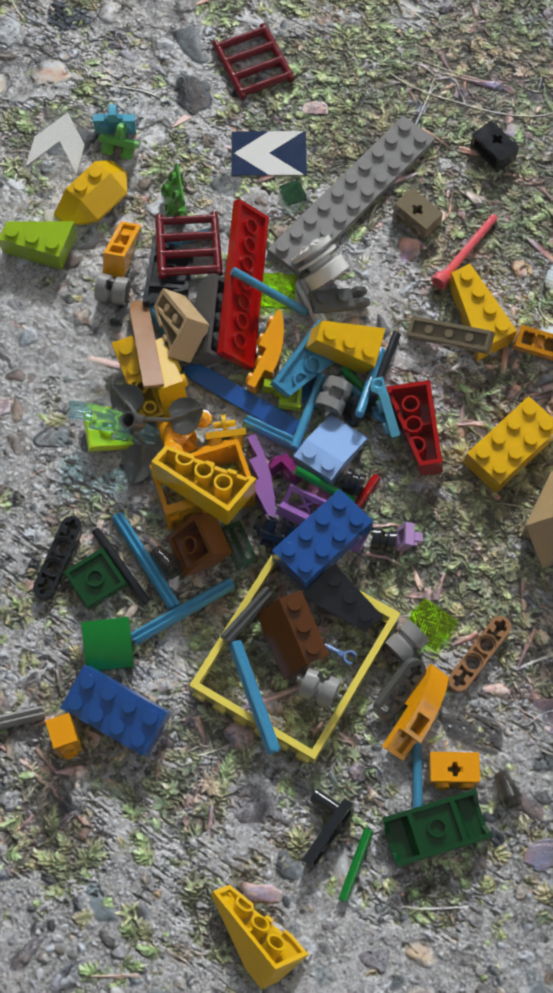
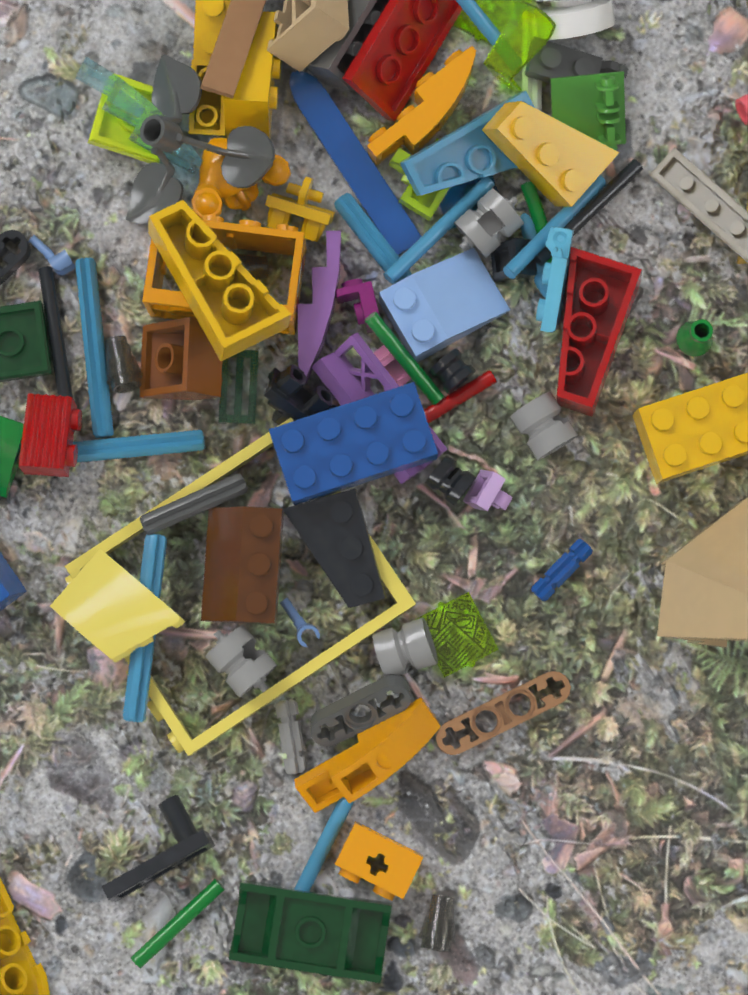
camera: 25 degrees right, 15 degrees up
(103, 523) = (60, 262): none -> medium blue hand
(144, 616) = (49, 435): none -> red brick
(231, 691) = (113, 608): none -> light yellow slope
(302, 296) = (519, 42): none -> clear neon green piece
(357, 310) = (592, 105): none -> bright green hinge
(367, 724) = (291, 736): none -> light grey axle
(419, 487) = (543, 425): none -> light grey wheel
(470, 561) = (562, 570): none -> blue axle
(476, 405) = (692, 344): none -> green cone

